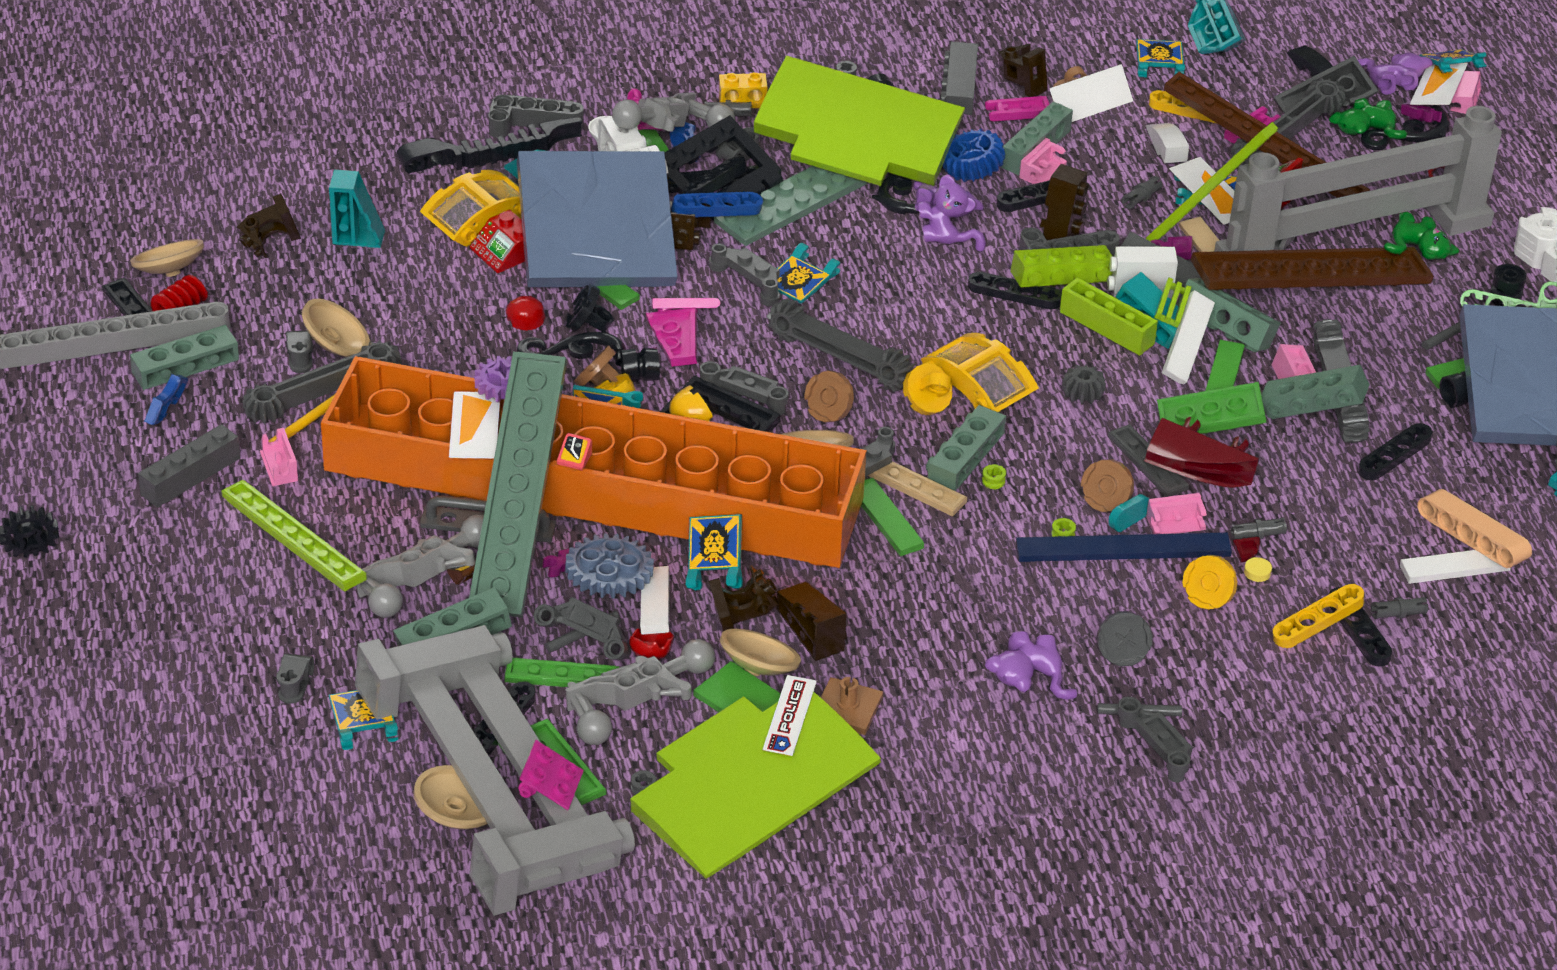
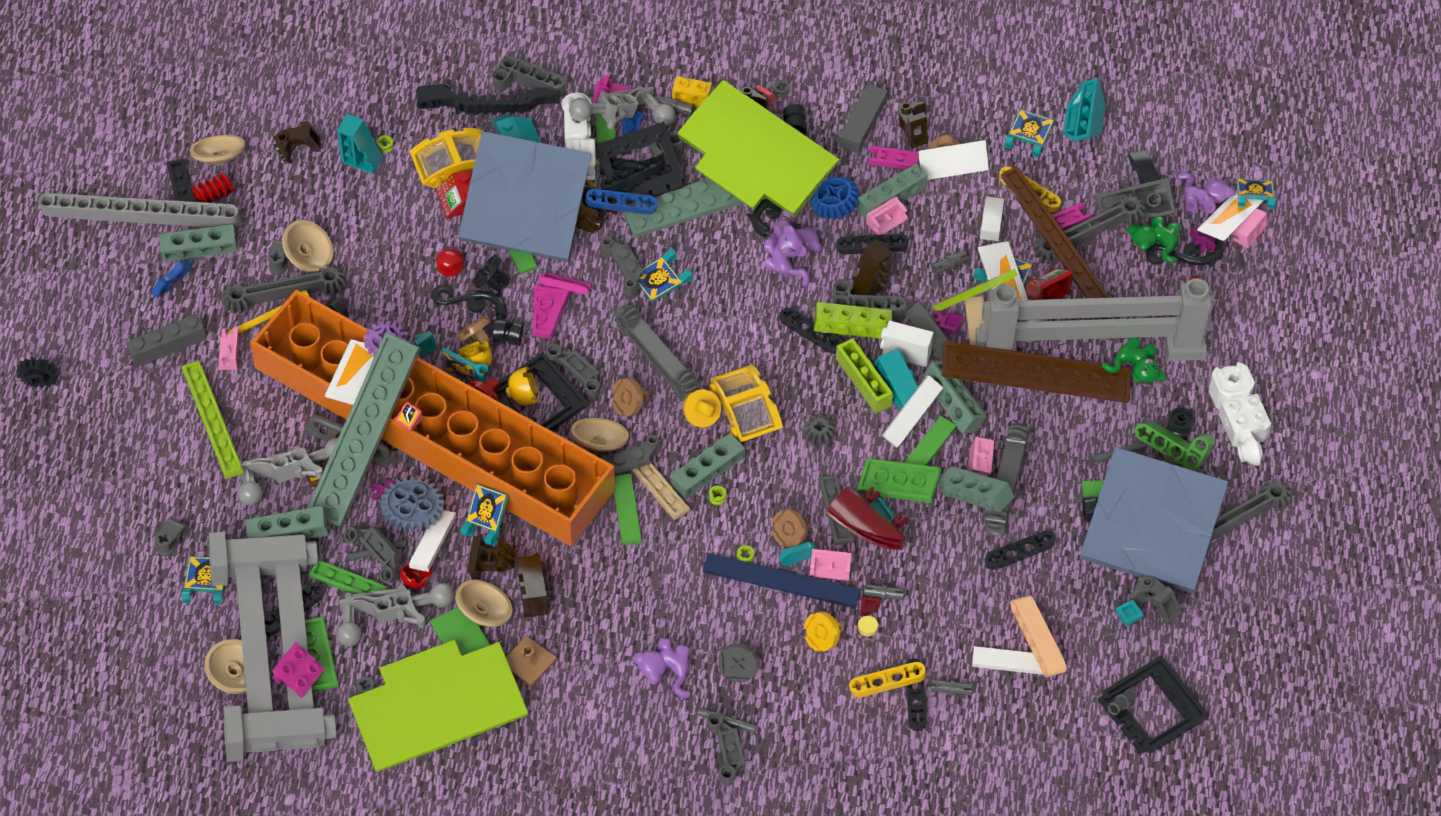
camera: 20 degrees right, 15 degrees up
(387, 212) = (385, 149): none -> lime bush
(789, 715) = (478, 664): white sticker -> none
(1177, 288) = (919, 368): lime tile -> none

